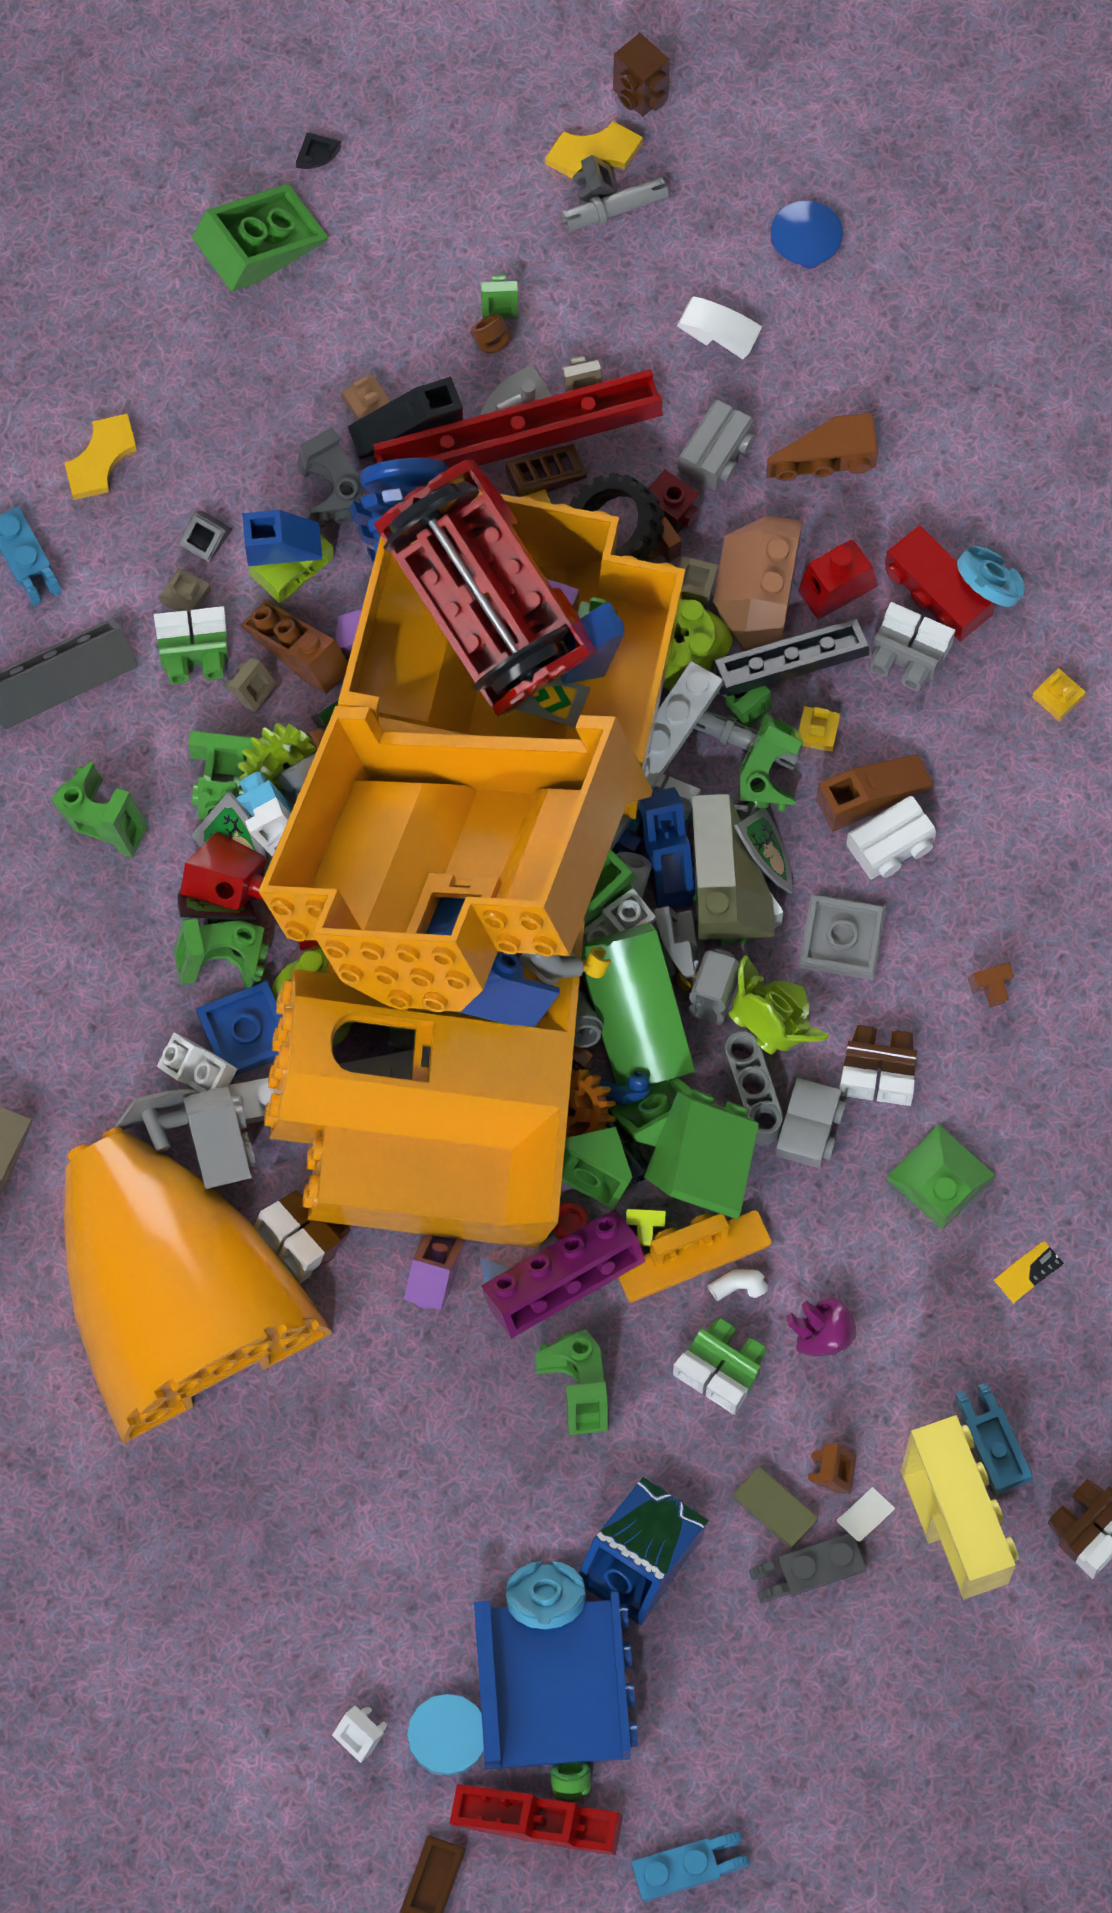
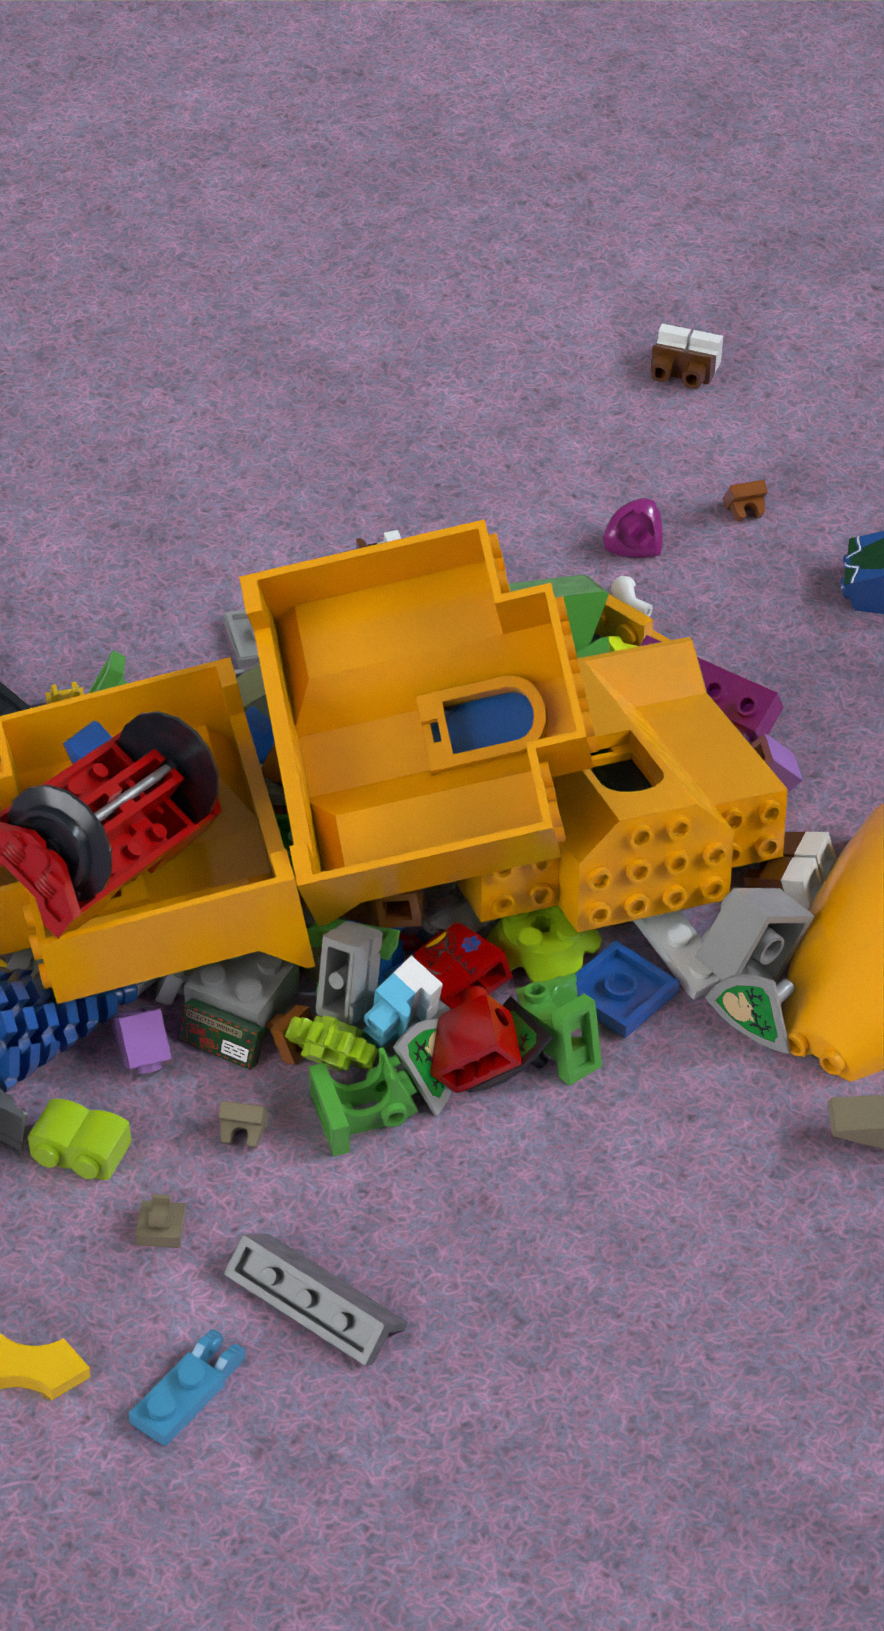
camera: 115 degrees left, 25 degrees down
(113, 822) = (470, 1199): bright green tile -> none
(195, 1065) = (684, 1003): white slope -> none
(204, 535) = (80, 1233): black slope -> none
(209, 644) = (220, 1187): bright green hips -> none
(280, 538) = (79, 1120): blue slope -> none
(298, 645) = (177, 1098): dark orange slope -> none
(588, 1399) = (793, 636): bright green tile -> none
(711, 1352) = (708, 582): hips -> none
(775, 1507) = (800, 527): olive tile -> none
(811, 1567) = (834, 495): dark grey hinge -> none
(865, 1514) = (772, 479): white sticker -> none
(870, 789) = (130, 637): dark orange slope -> none
(892, 838) = (155, 623): white brick -> none
(940, 1176) = (455, 502): bright green slope -> none
(956, 1507) = (737, 370): light yellow piece -> none
(993, 983) = (257, 528): dark orange tile -> none
(995, 1442) = (654, 428): dark azure hinge -> none
(1028, 1271) = (499, 453): yellow sticker -> none

